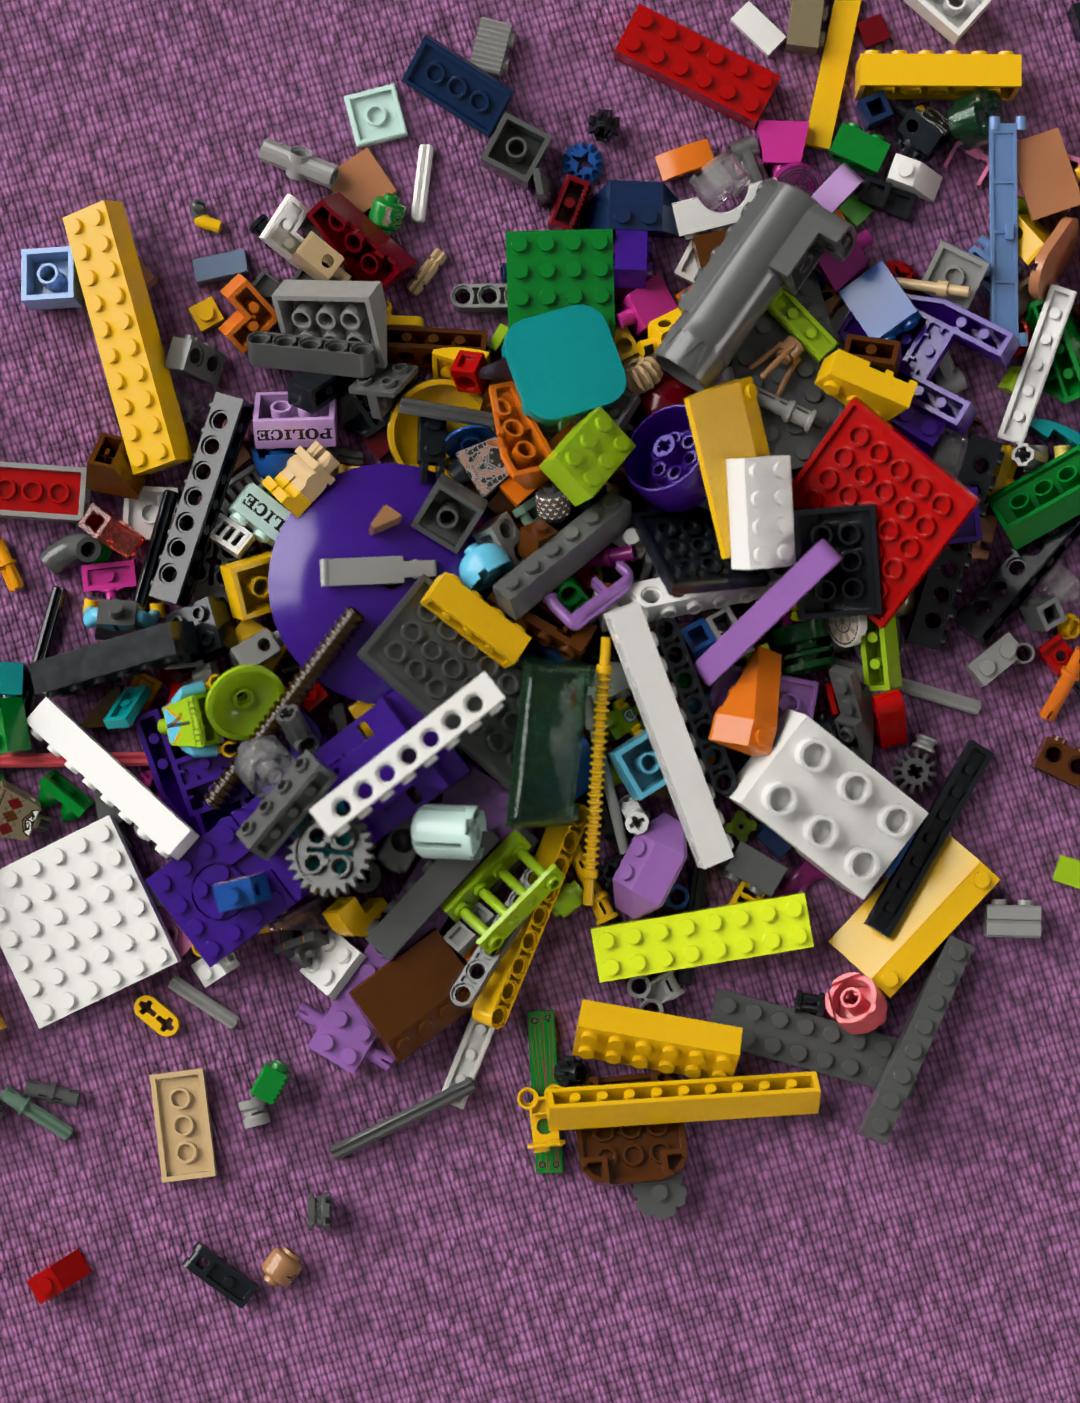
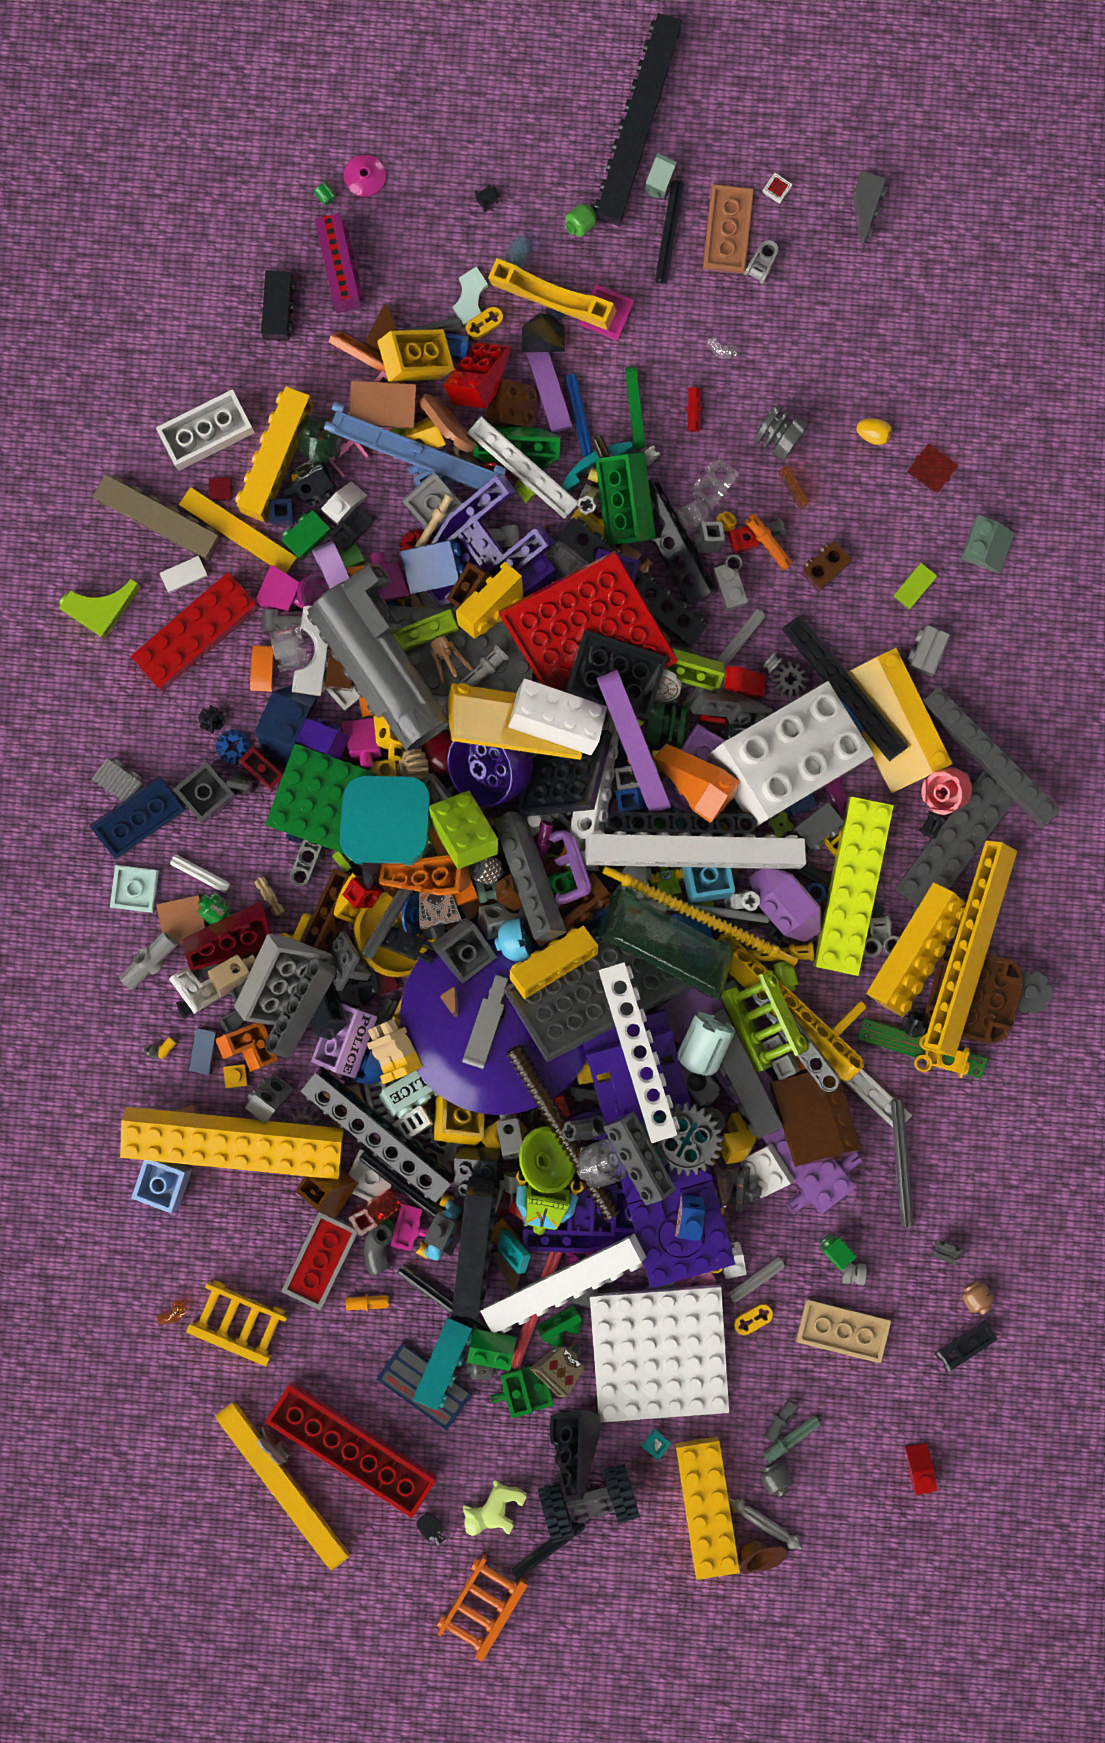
camera: 70 degrees left, 0 degrees up
(546, 991) = (848, 1018): none -> yellow tile

